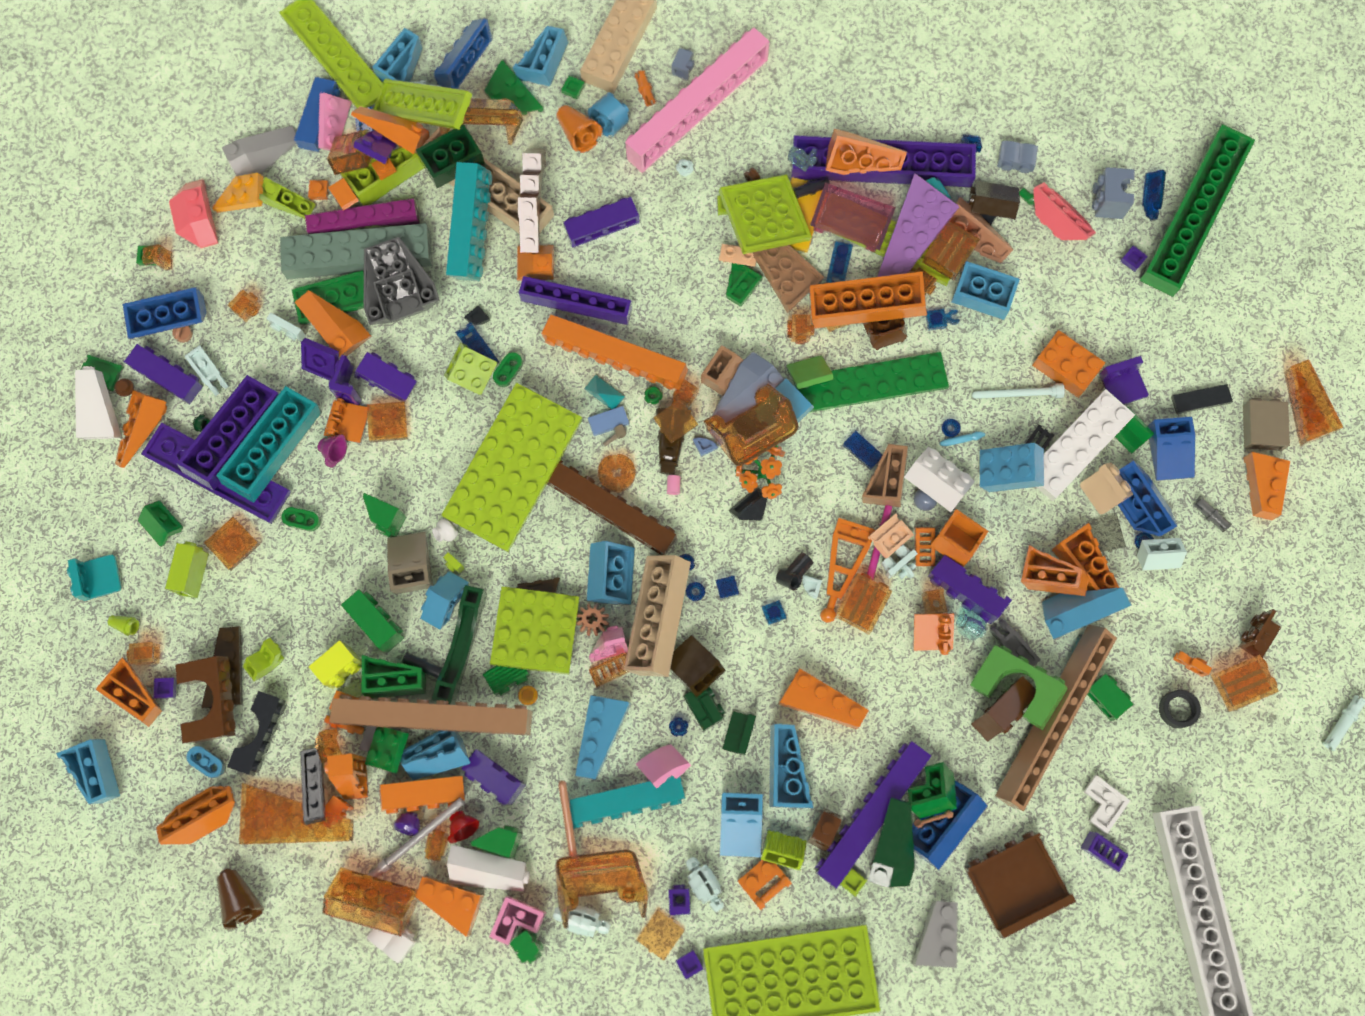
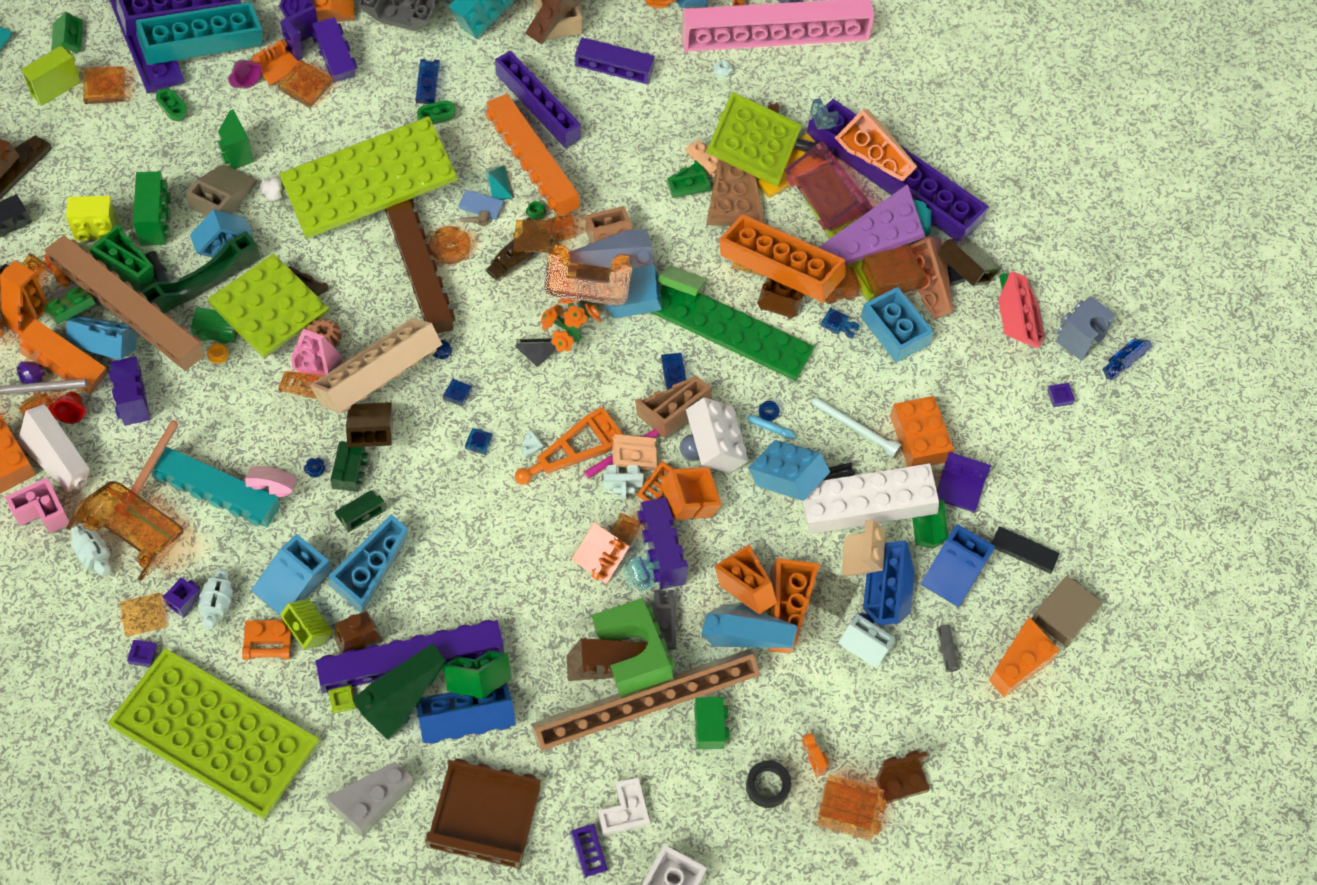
camera: 30 degrees right, 15 degrees down
(264, 660) = (43, 180): lime brick -> none
(452, 564) = (254, 216): lime plate -> none
(470, 369) = (405, 90): lime bracket -> none
(476, 316) = (449, 60): black tile -> none
(500, 841) = (87, 436): green slope -> none
(527, 947) = (27, 530): green brick -> none
(536, 265) = (536, 56): orange slope -> none
(600, 730) = (242, 422): dark azure wedge -> none
(610, 573) = (372, 312): dark azure slope -> none
(673, 484) = (488, 286): bright pink hinge -> none
(695, 585) = (428, 372): clear blue plate -> none
(704, 445) = (539, 276): medium blue tile -> none
(792, 576) = (527, 420): black piece -> none
(800, 328) = (705, 245): clear orange brick -> none
(822, 701) = (448, 528): orange wedge -> none
(839, 261) = (792, 220): clear blue plate -> none
(863, 603) = (561, 487): clear orange brick -> none
(919, 823) = (472, 698): nougat hinge -> none
(970, 139) = (994, 210): clear blue plate -> none
(1017, 156) = (1023, 246): sand blue brick -> none
(1197, 210) = (1154, 394): green brick -> none
(1310, 404) = (1122, 628): clear orange wedge -> none

